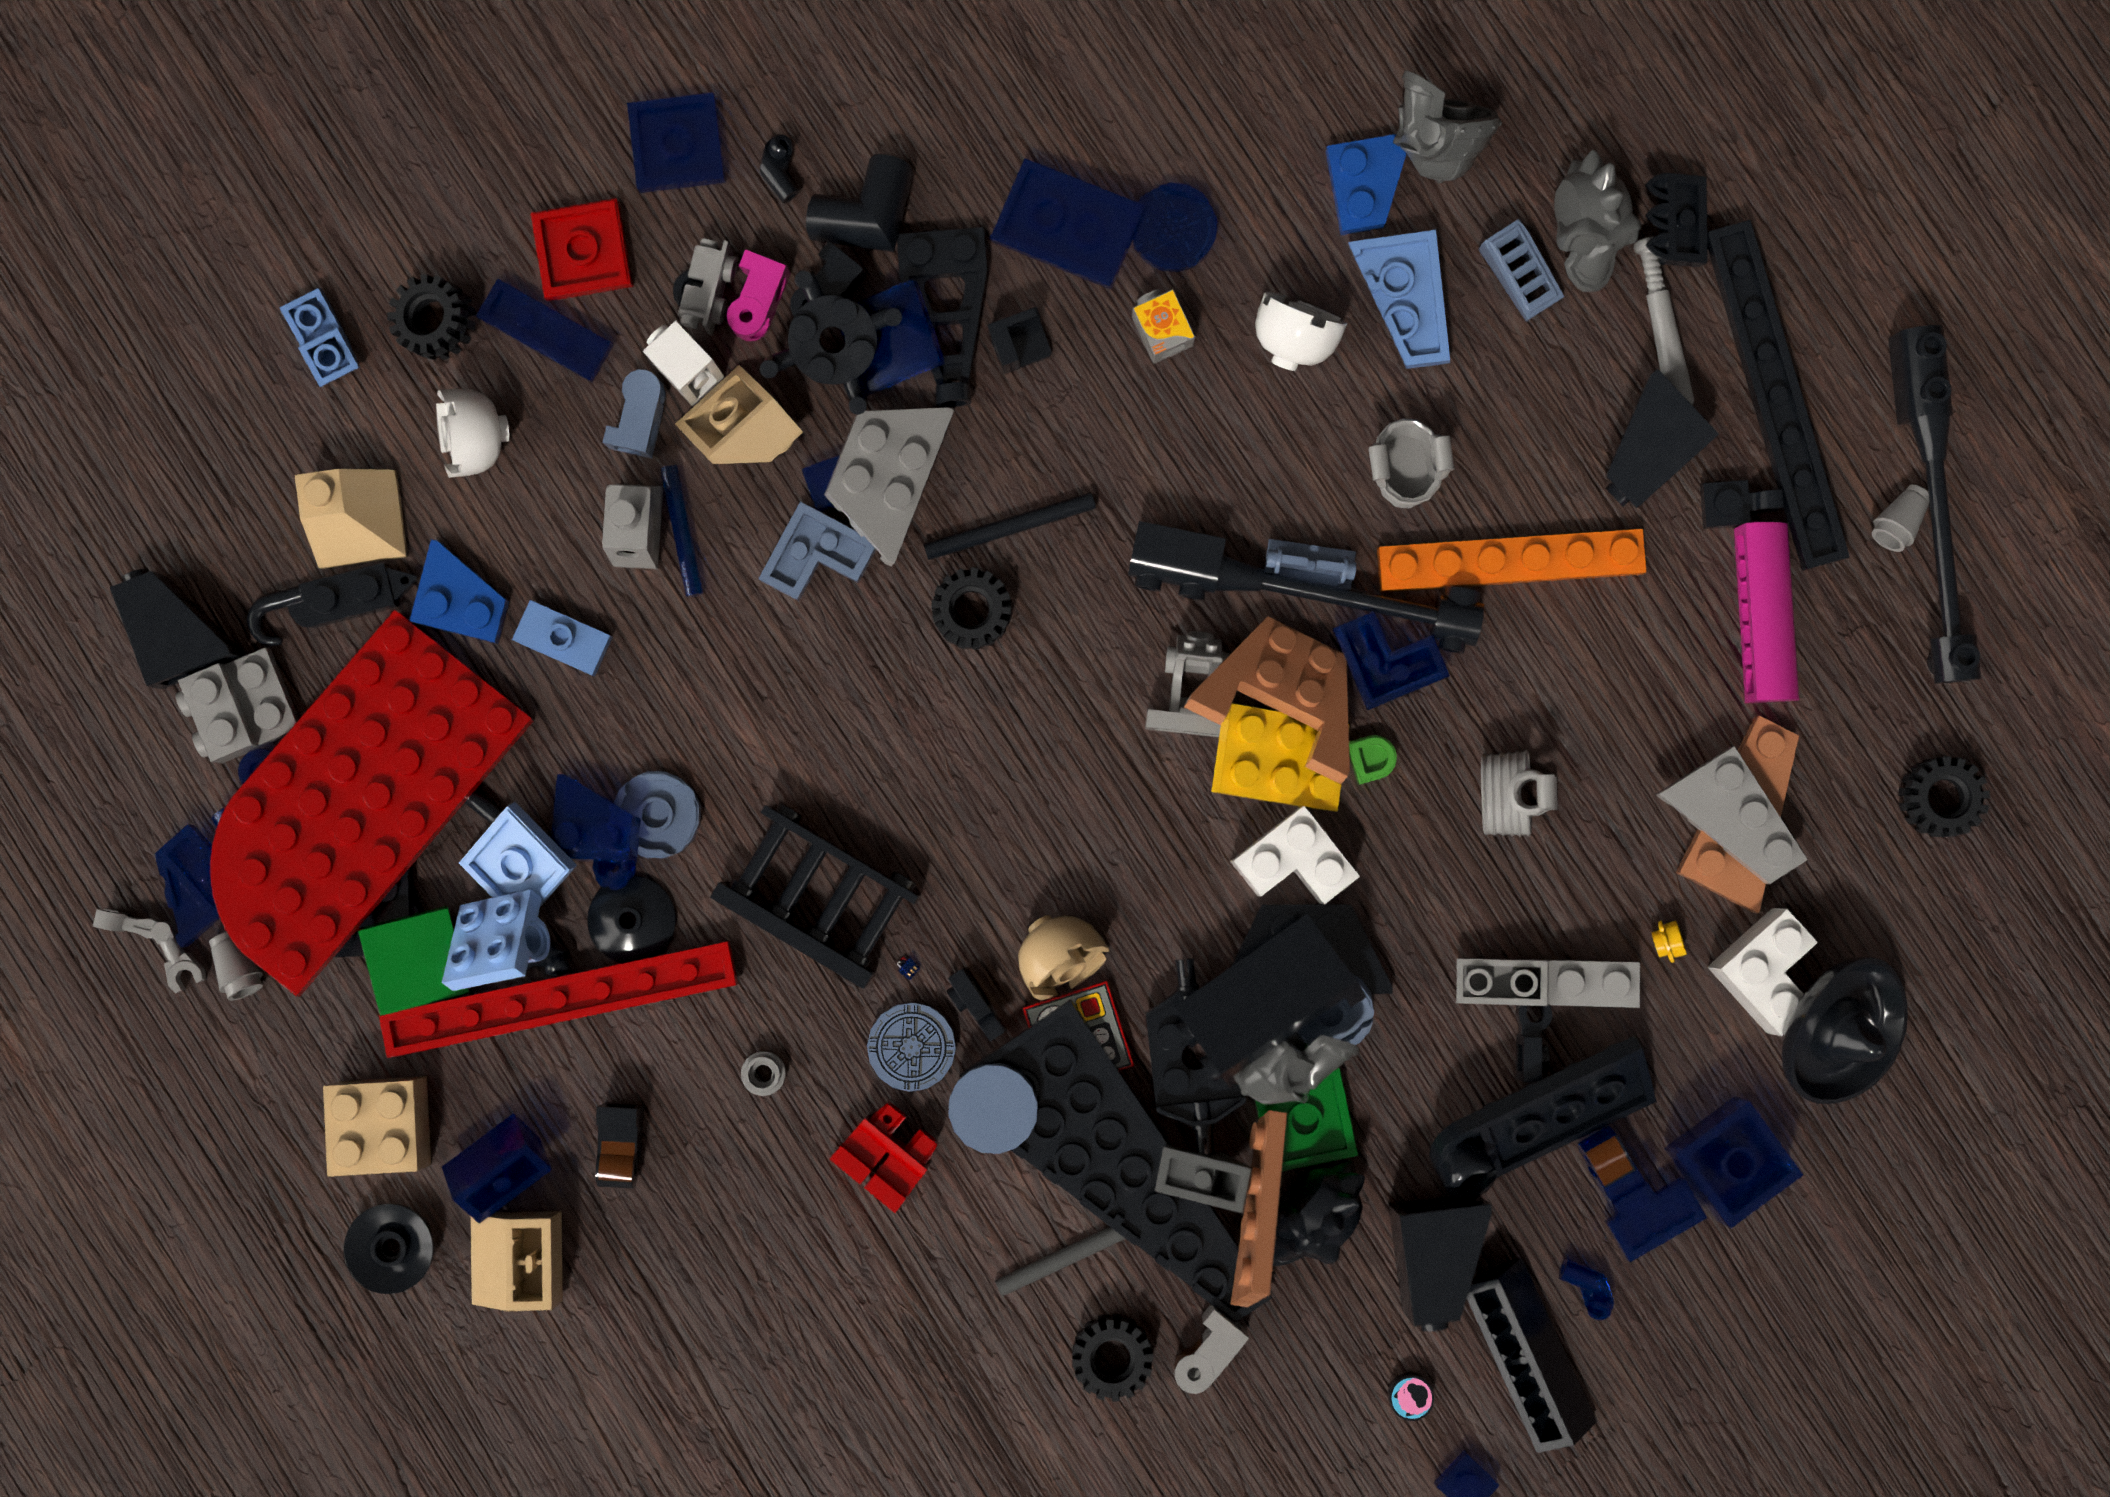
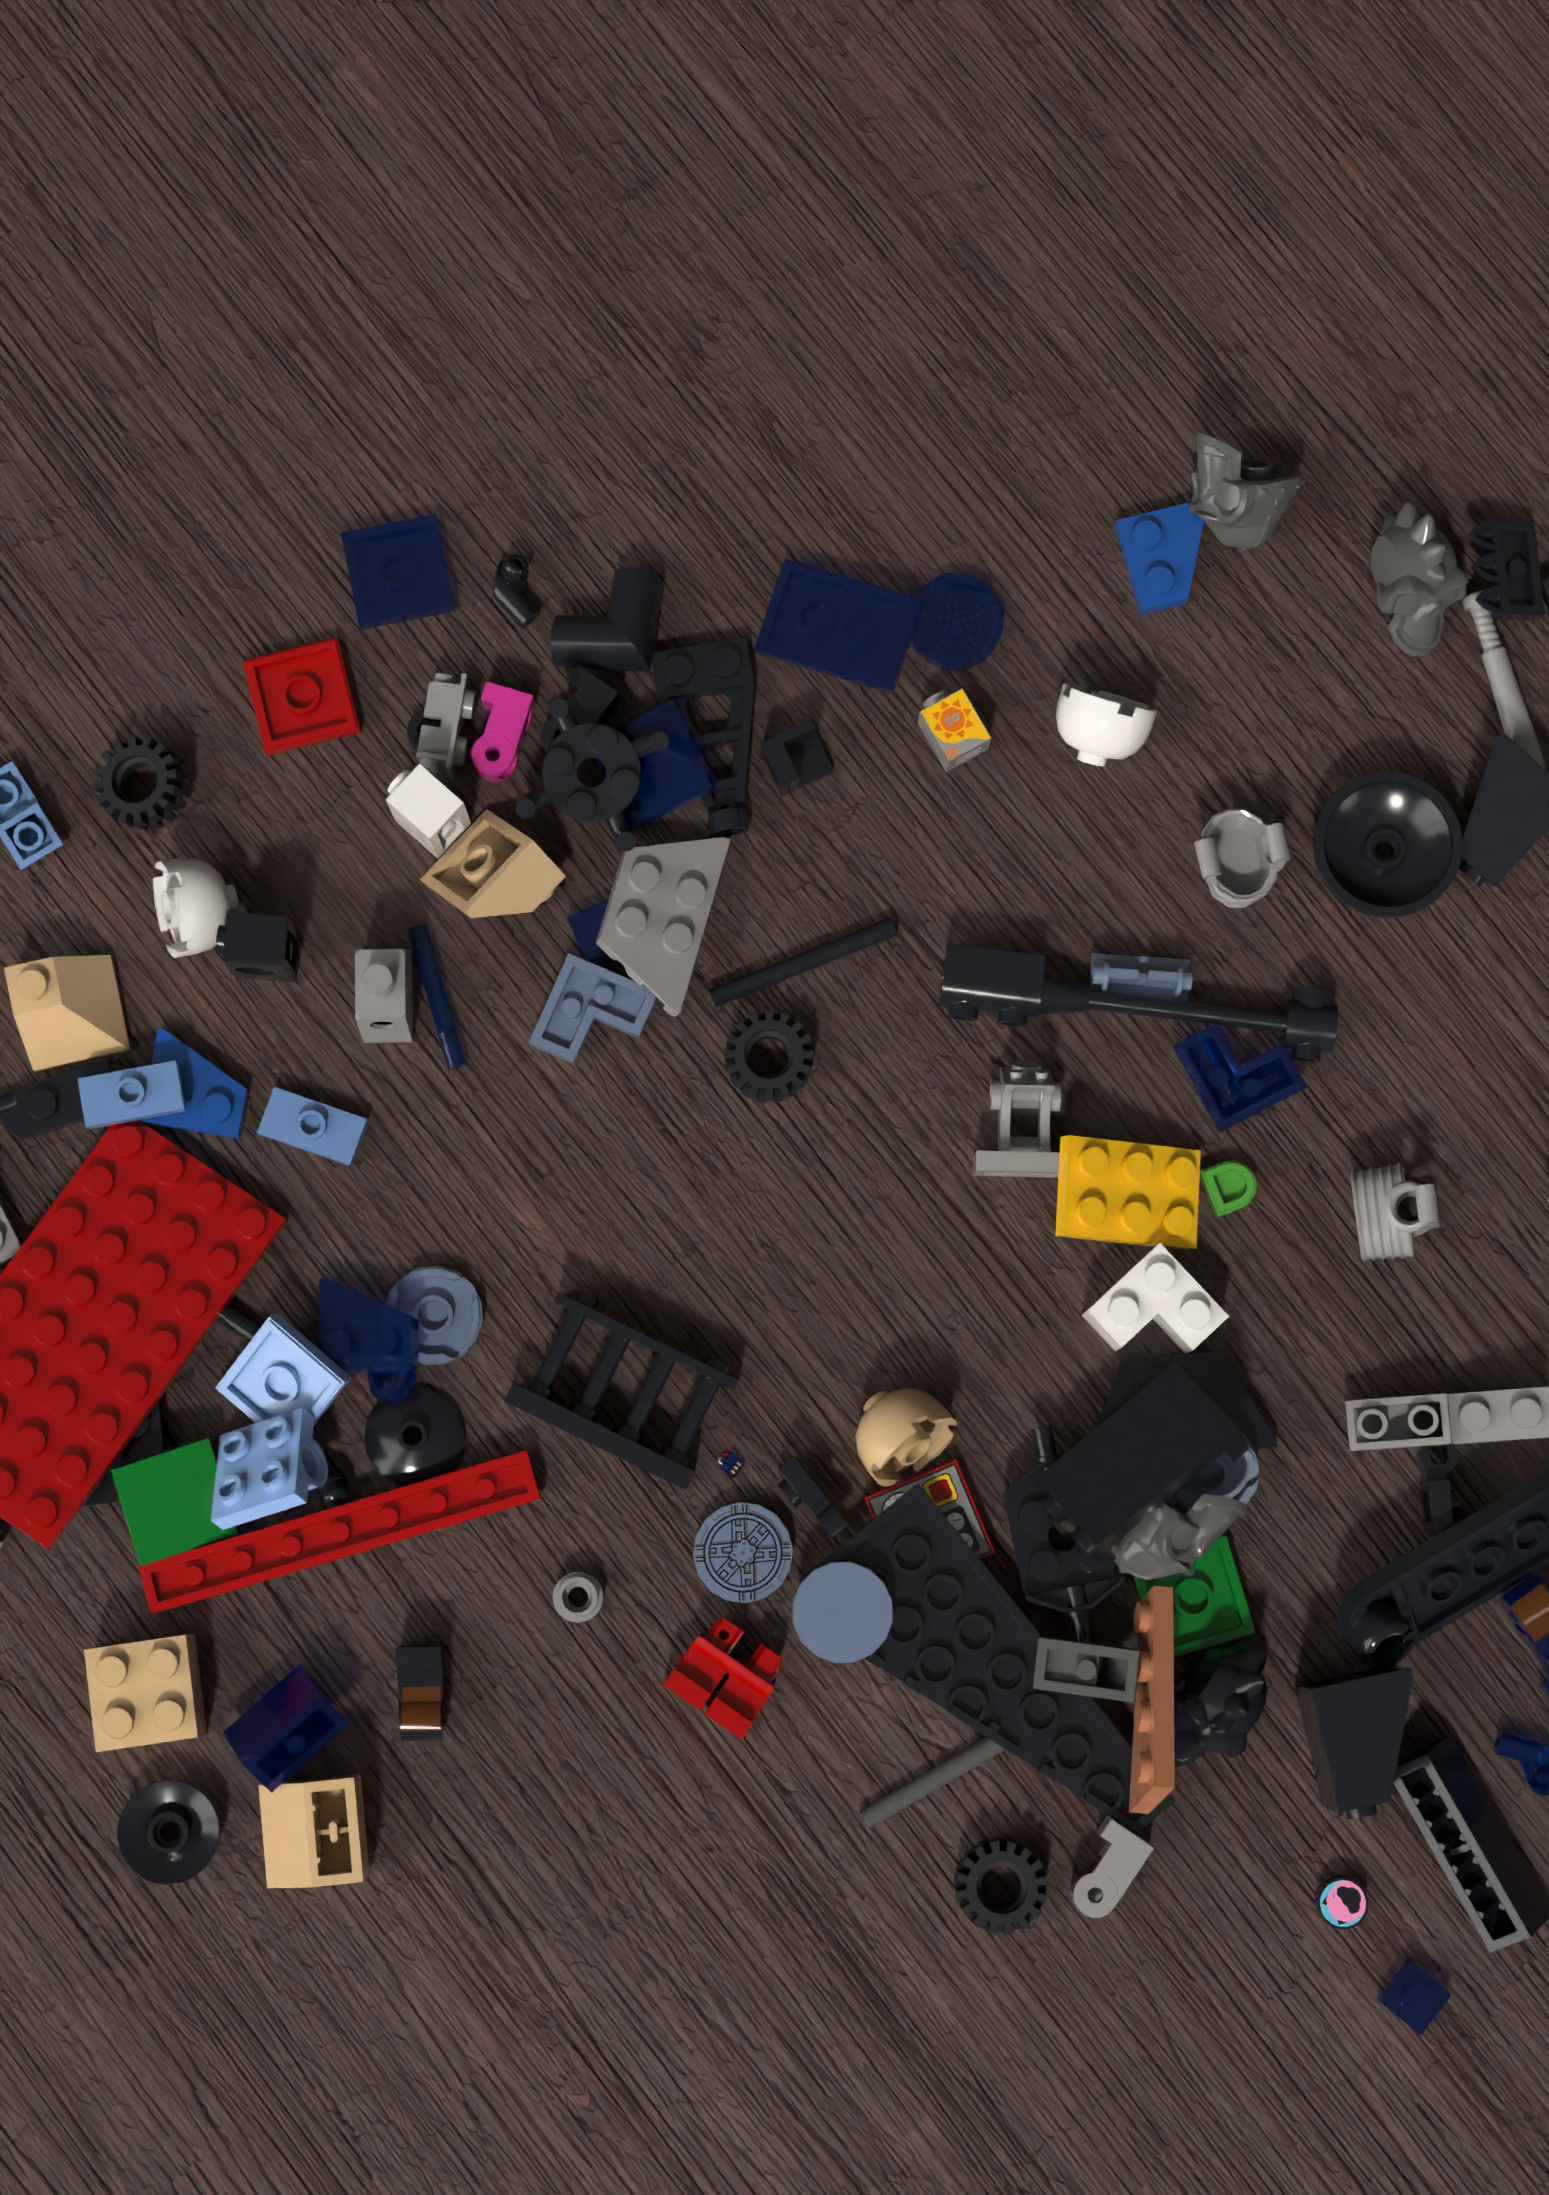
camera: 15 degrees left, 5 degrees down
(401, 597) = (132, 1094): none -> medium blue plate
(523, 474) = (259, 946): none -> black brick
(544, 330) = (267, 788): clear blue tile -> none
(640, 415) = (382, 873): sand blue leg -> none
(1292, 677) = (1132, 1102): nougat wing -> none
(1408, 292) = (1221, 673): medium blue wing -> none
(1499, 265) = (1356, 628): sand blue slope -> none
(1511, 560) = (1362, 955): orange plate -> none
(1563, 439) = (1406, 818): none -> black dish

